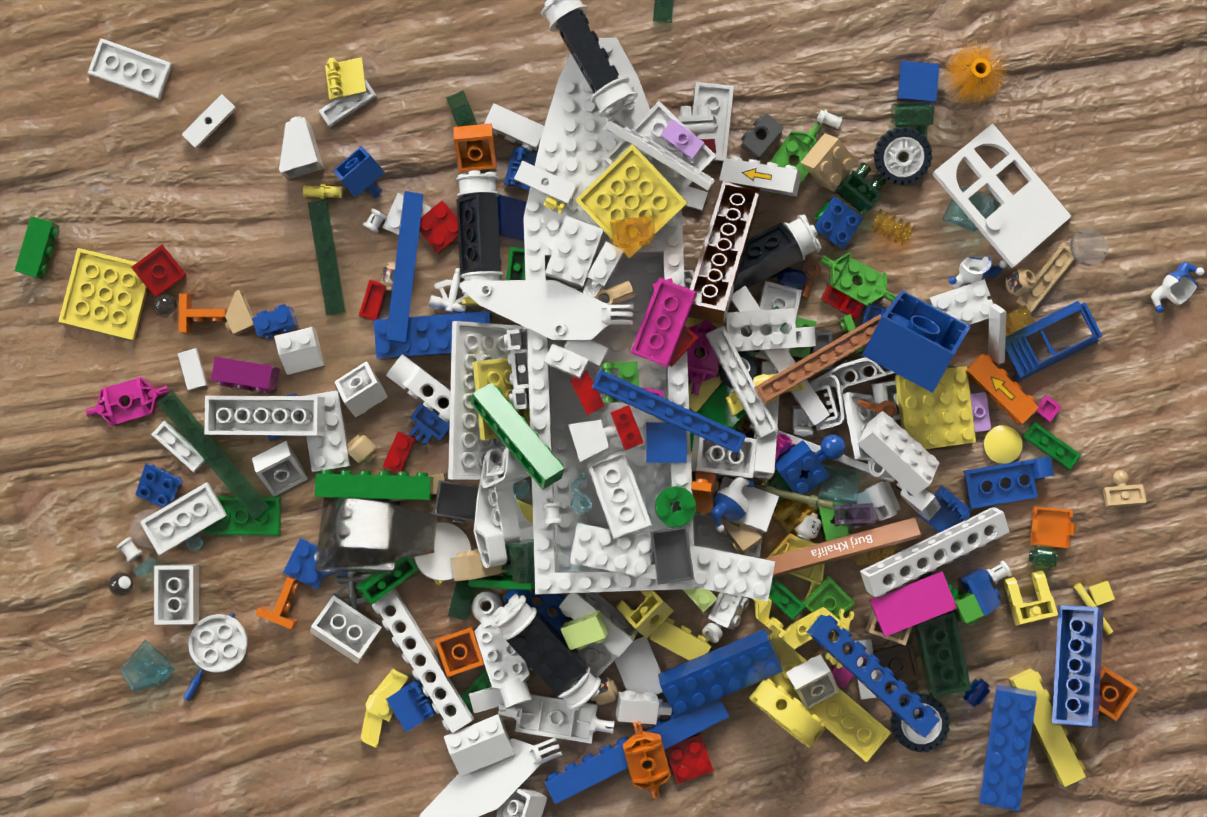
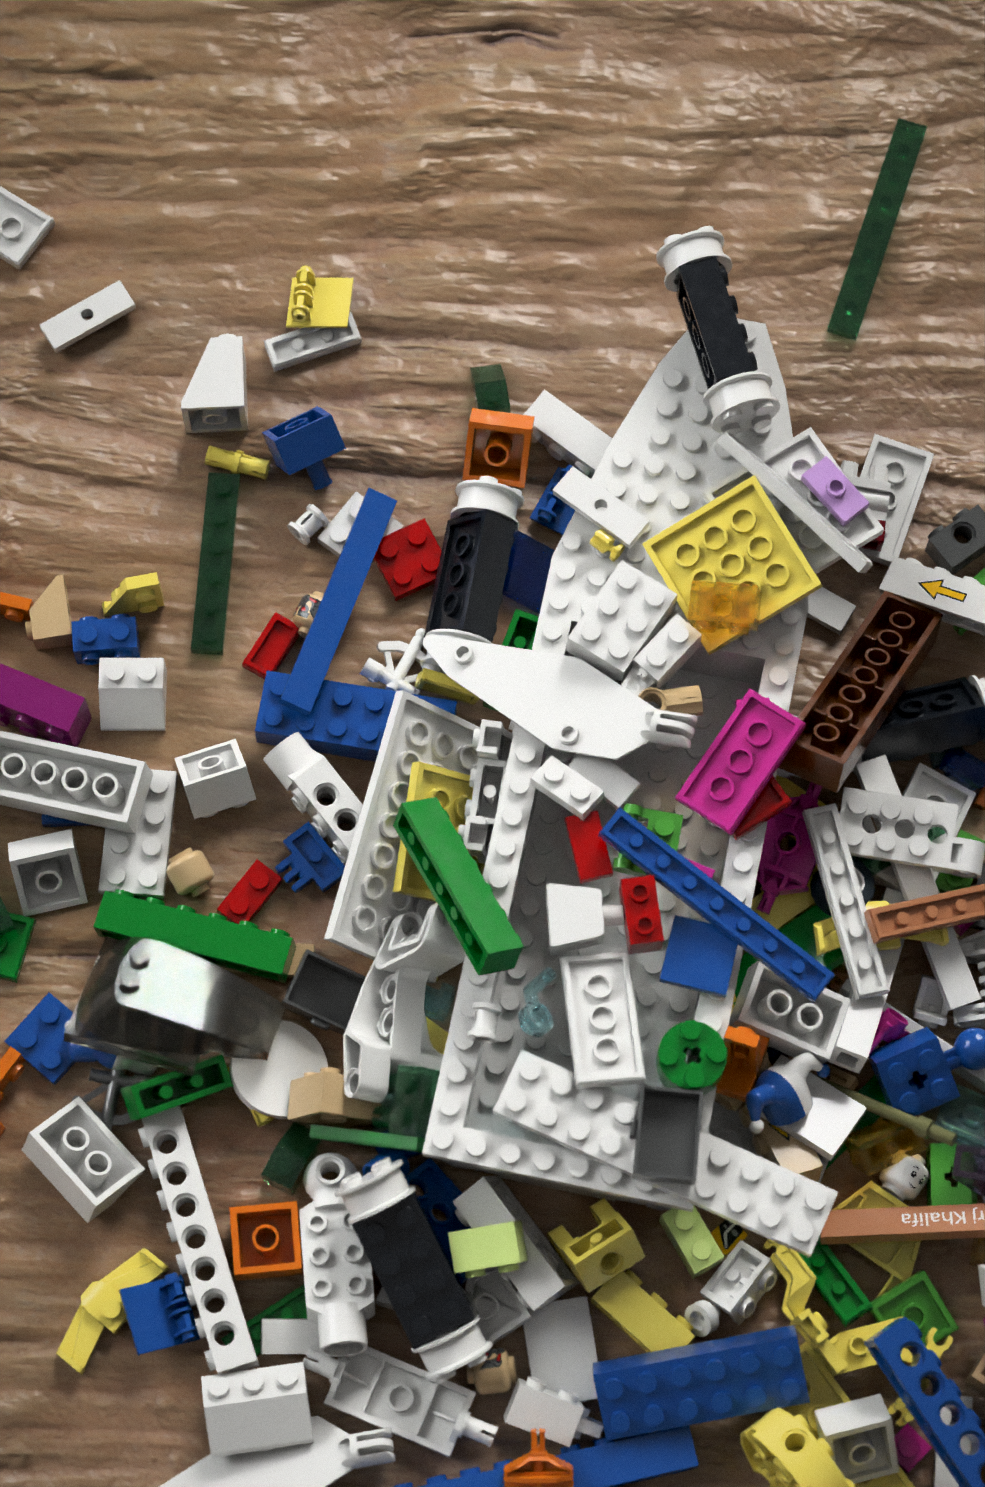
camera: 10 degrees right, 15 degrees down
(288, 289) = (135, 594): none -> light yellow wing

